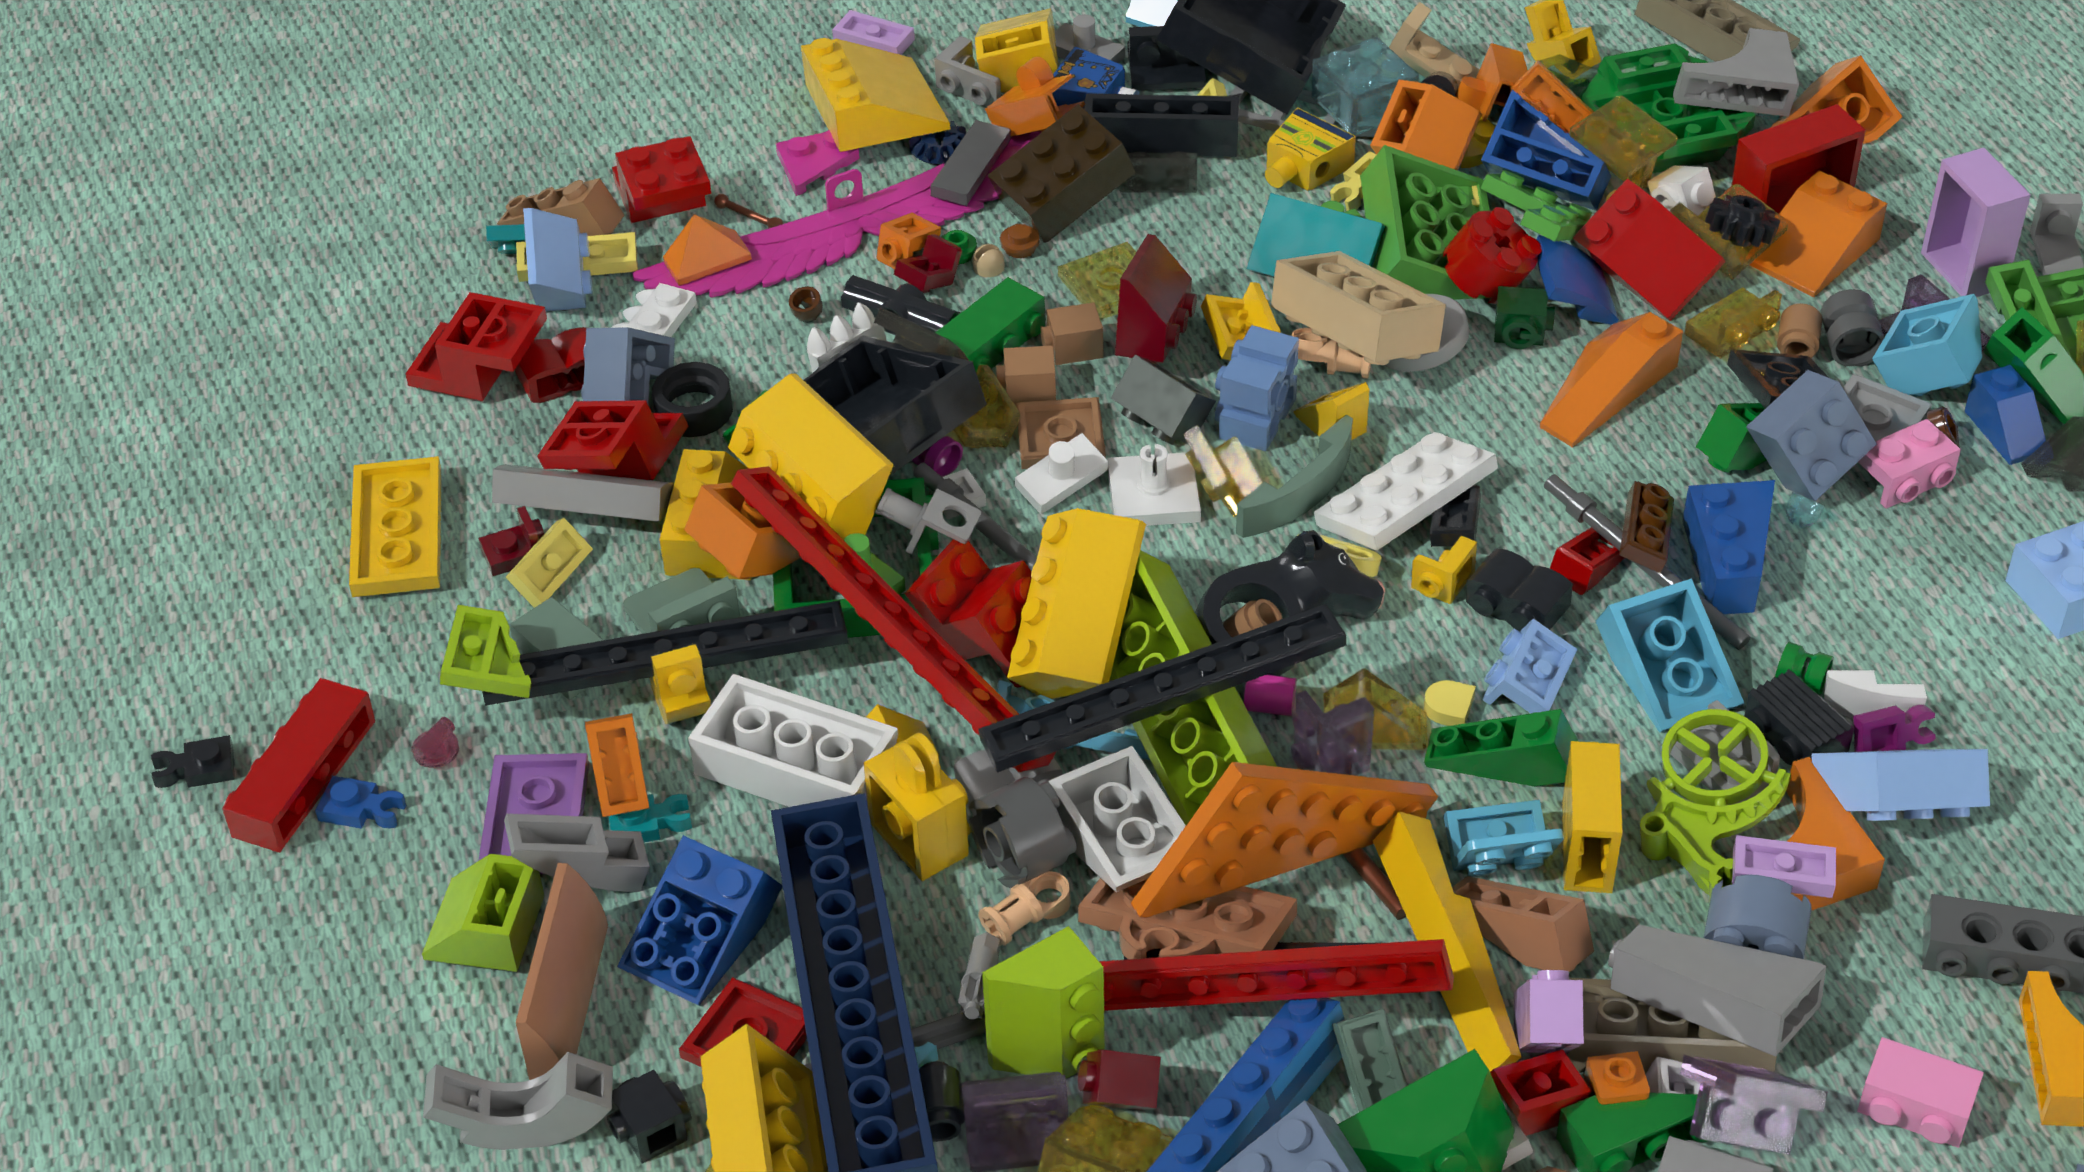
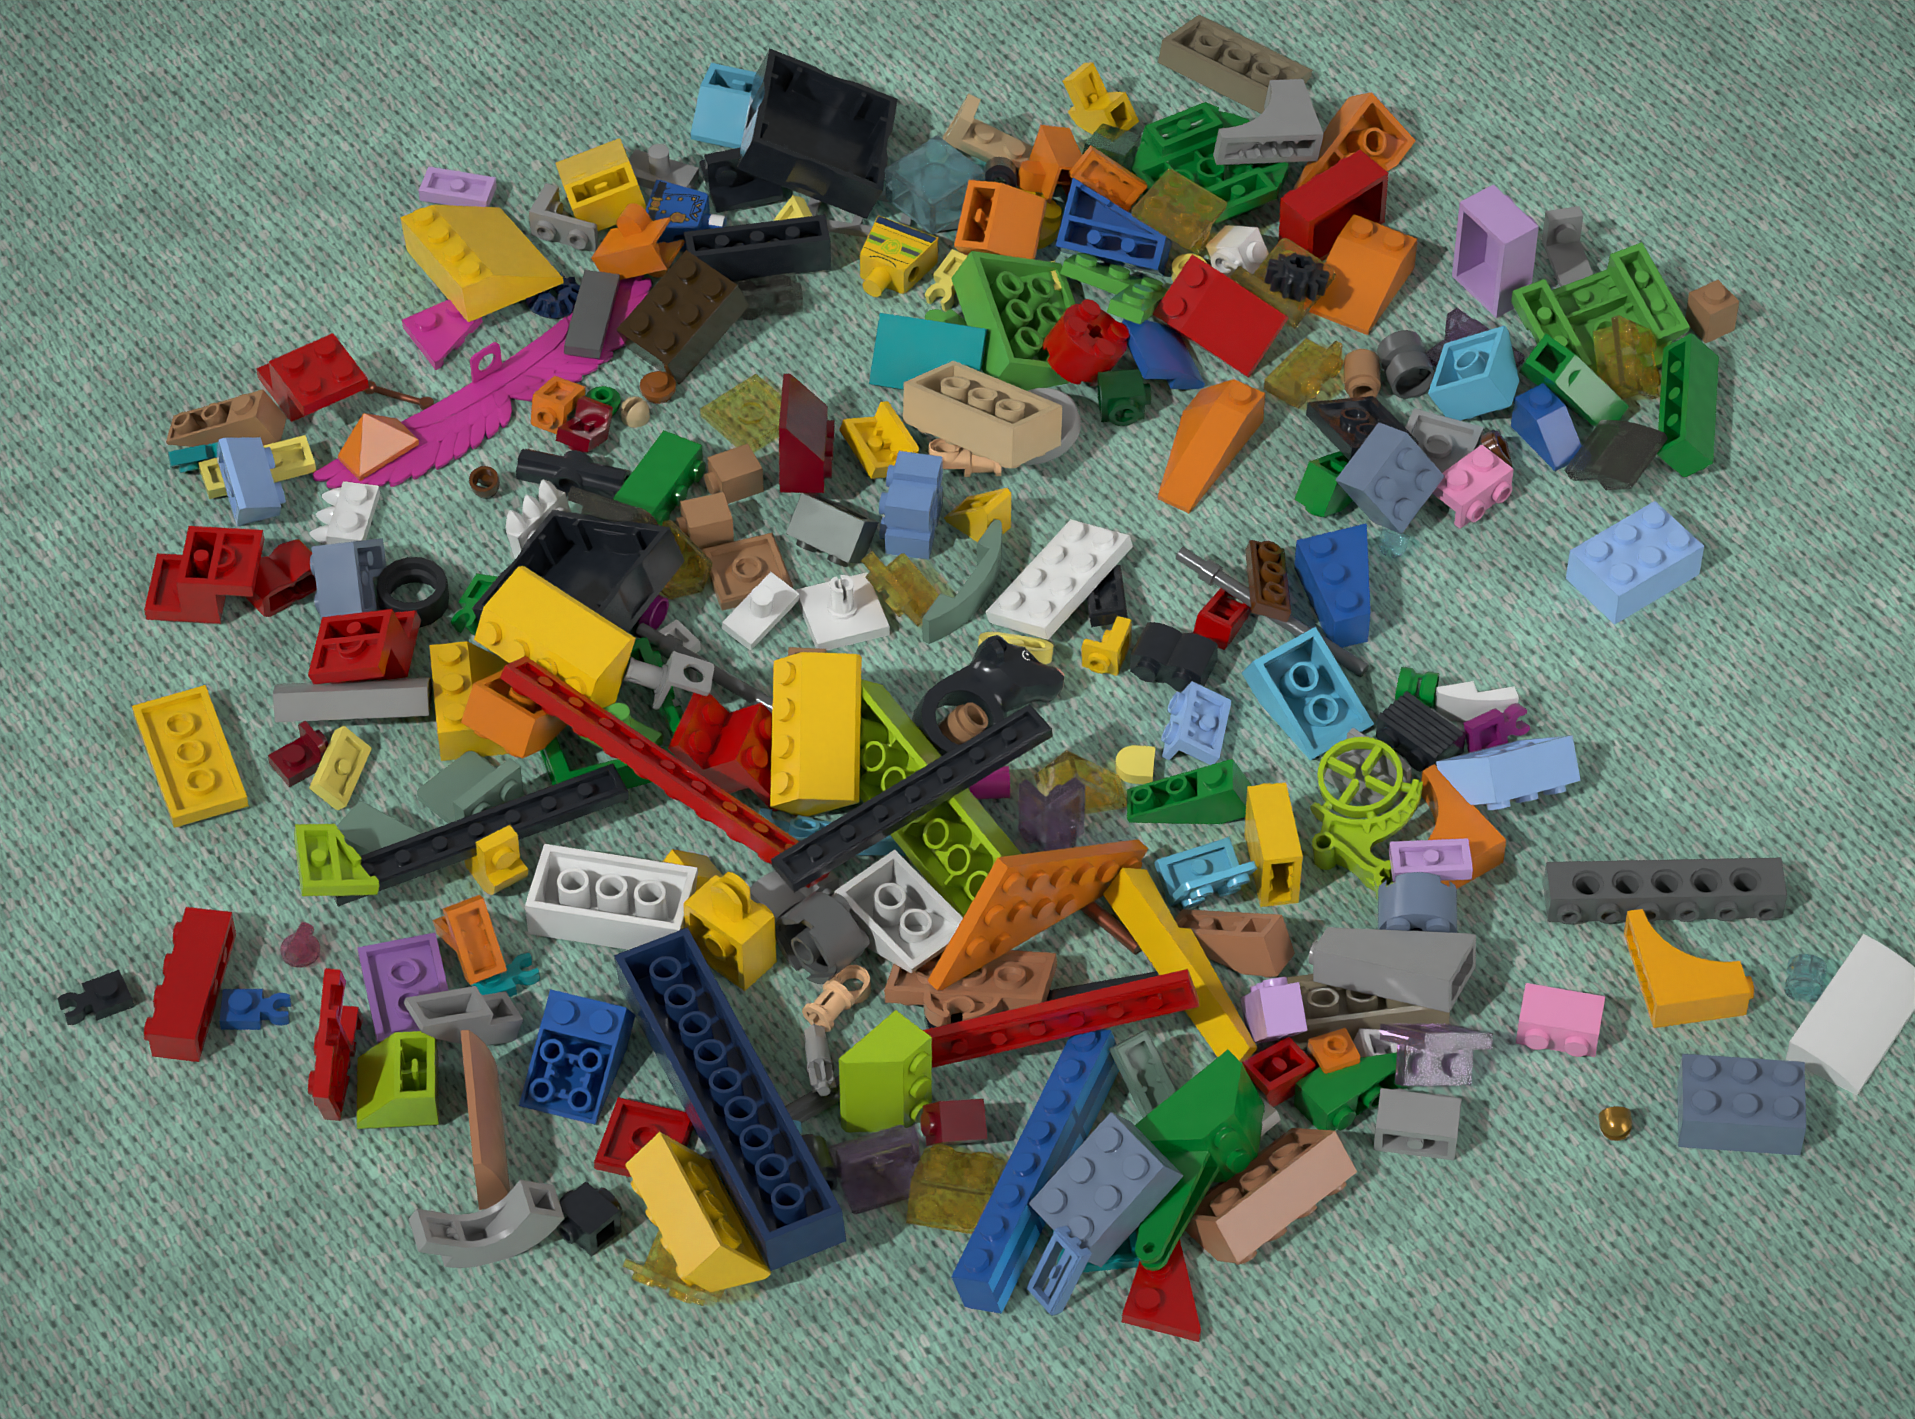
camera: 15 degrees left, 5 degrees up
(408, 864) = (333, 1047): none -> red wing

